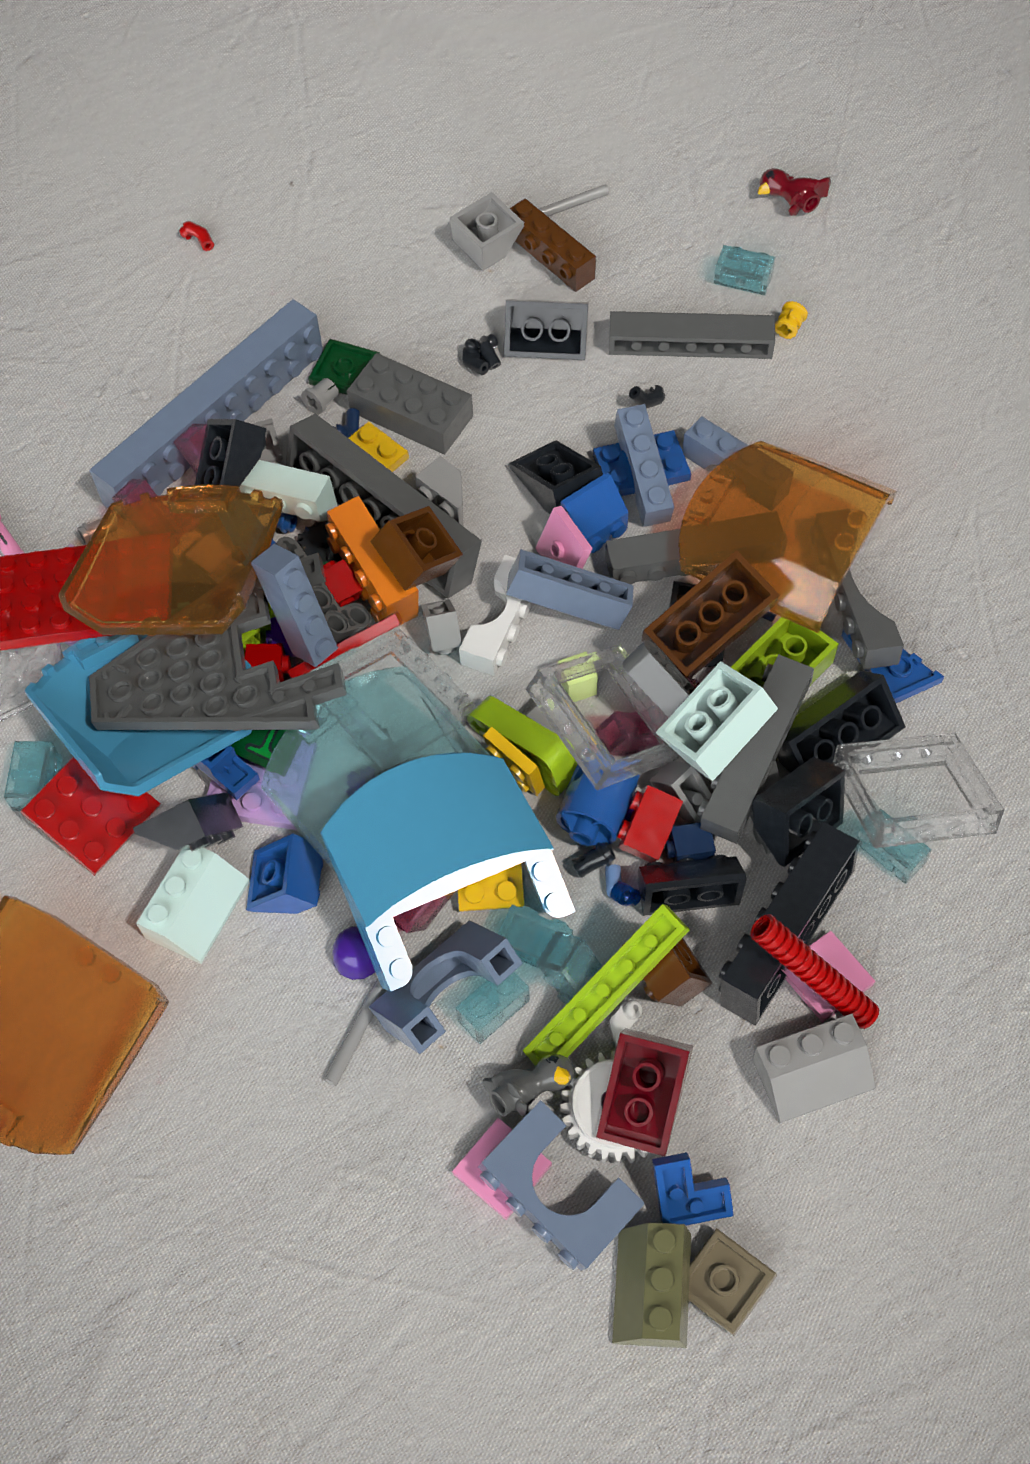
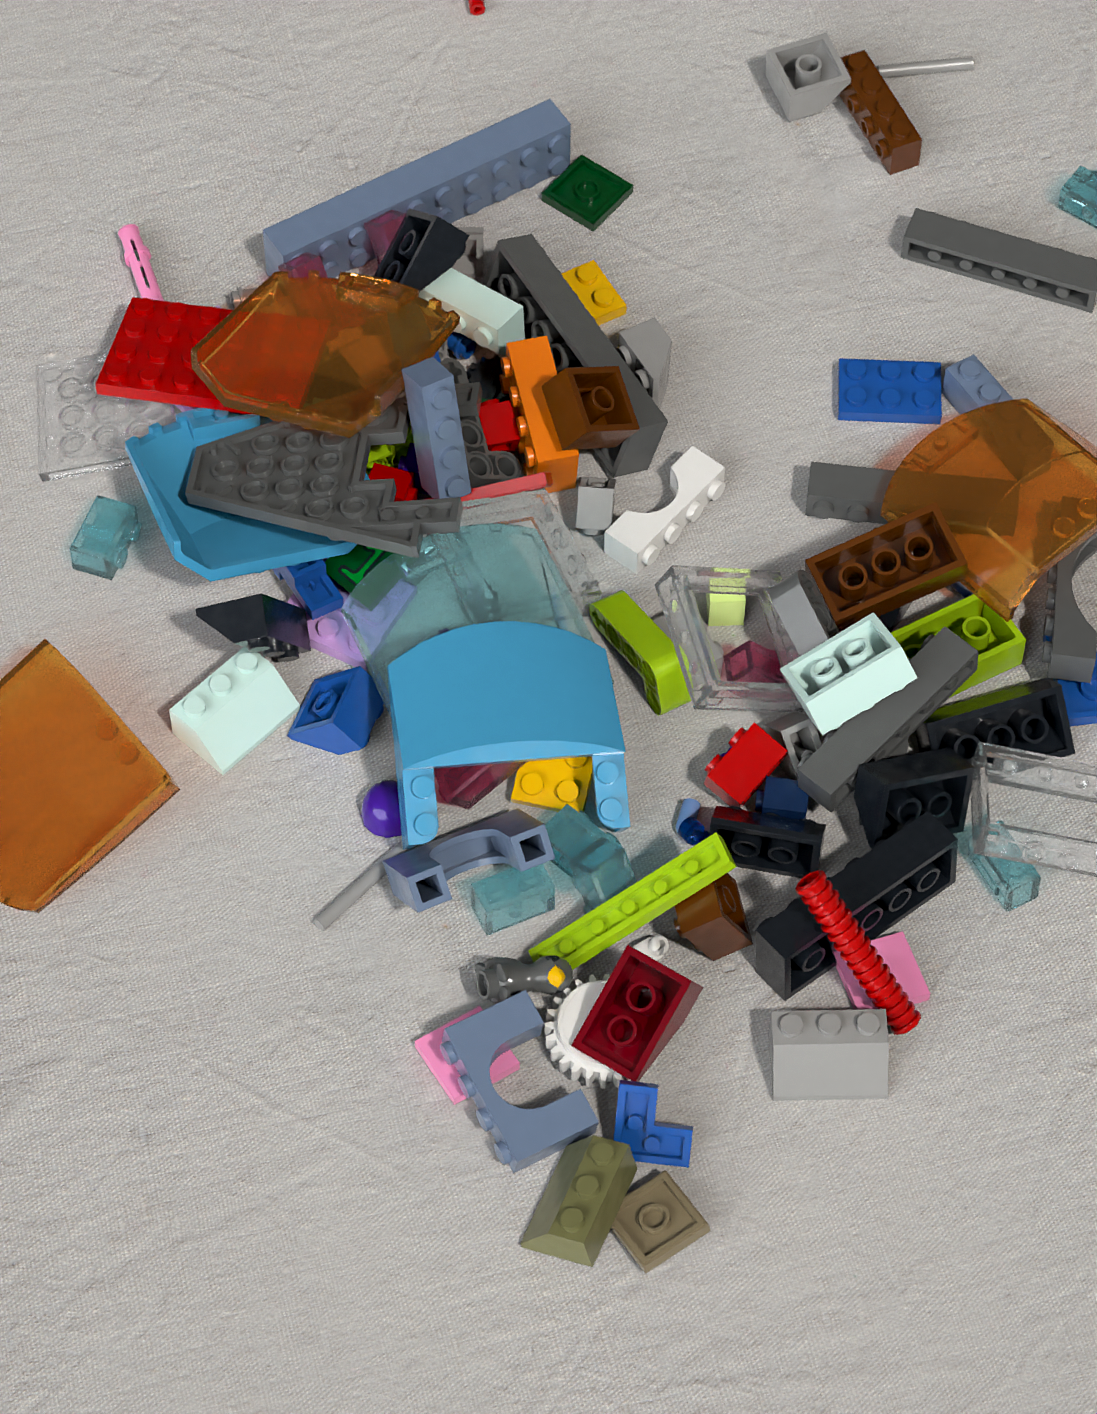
camera: 15 degrees right, 5 degrees down
(85, 819) = (150, 591): red plate -> none
(316, 397) = (543, 217): light grey bush -> none
(351, 424) = (572, 259): dark blue arm -> none
(410, 403) = (647, 252): dark grey brick -> none
(472, 359) = (738, 219): black arm -> none
(487, 351) = (758, 218): black arm -> none
(522, 768) = (622, 664): yellow plate -> none
(546, 329) = (835, 208): slope -> none
(554, 473) = (788, 382): black slope -> none
(563, 540) = (760, 456): bright pink plate -> none
(570, 589) = (749, 502): sand blue brick -> none
(593, 814) = (690, 738): blue cylinder -> none
(594, 859) = (674, 787): black pin -> none
(598, 511) = (808, 430): blue slope -> none
(650, 483) = (886, 391): sand blue arch -> none
(651, 399) = (925, 321): black arm -> none

